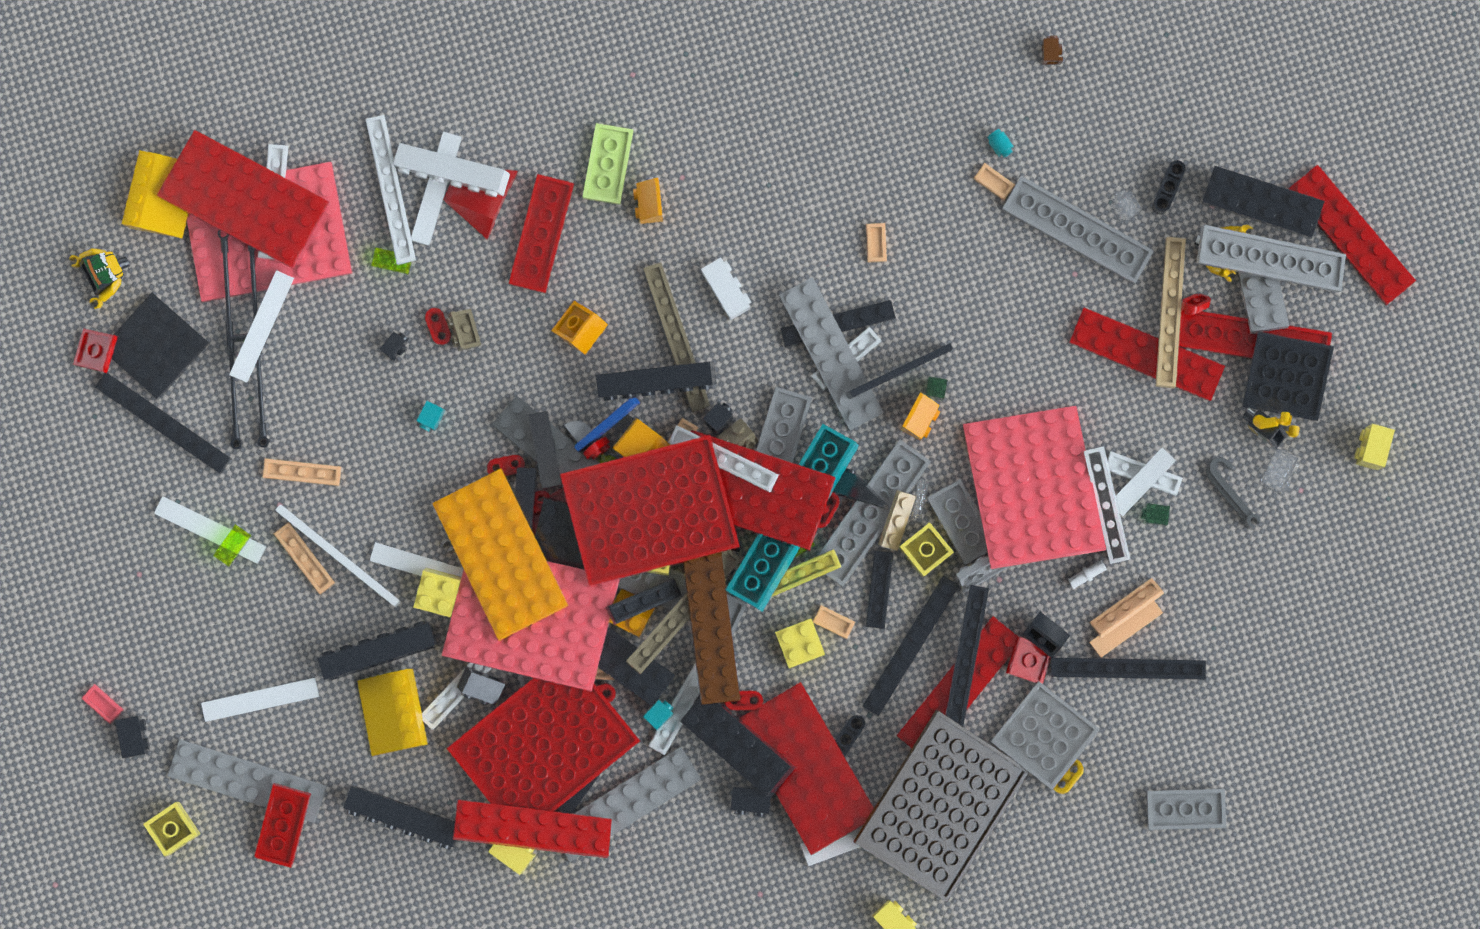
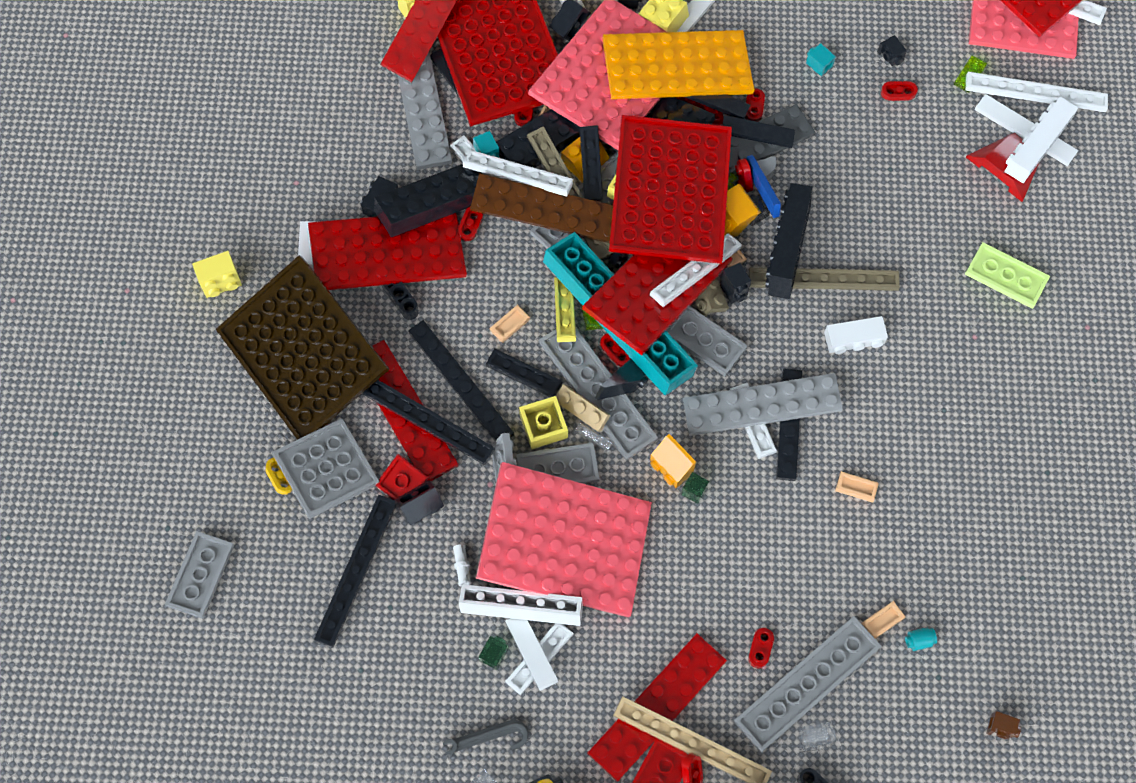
camera: 110 degrees right, 15 degrees down
(463, 329) = (889, 107): dark tan bracket -> none
(541, 233) = (958, 199): red plate -> none
(579, 327) = (859, 201): light orange slope -> none
(649, 201) = (960, 297): light orange slope -> none
(684, 669) = (518, 172): none -> white tile
(799, 643) = (501, 285): light yellow brick -> none
(899, 371) = (723, 454): black tile -> none
(1060, 281) = (761, 647): none -> red plate
(1126, 608) = (414, 591): light nougat tile -> none
(1126, 629) = (396, 584): light nougat tile -> none

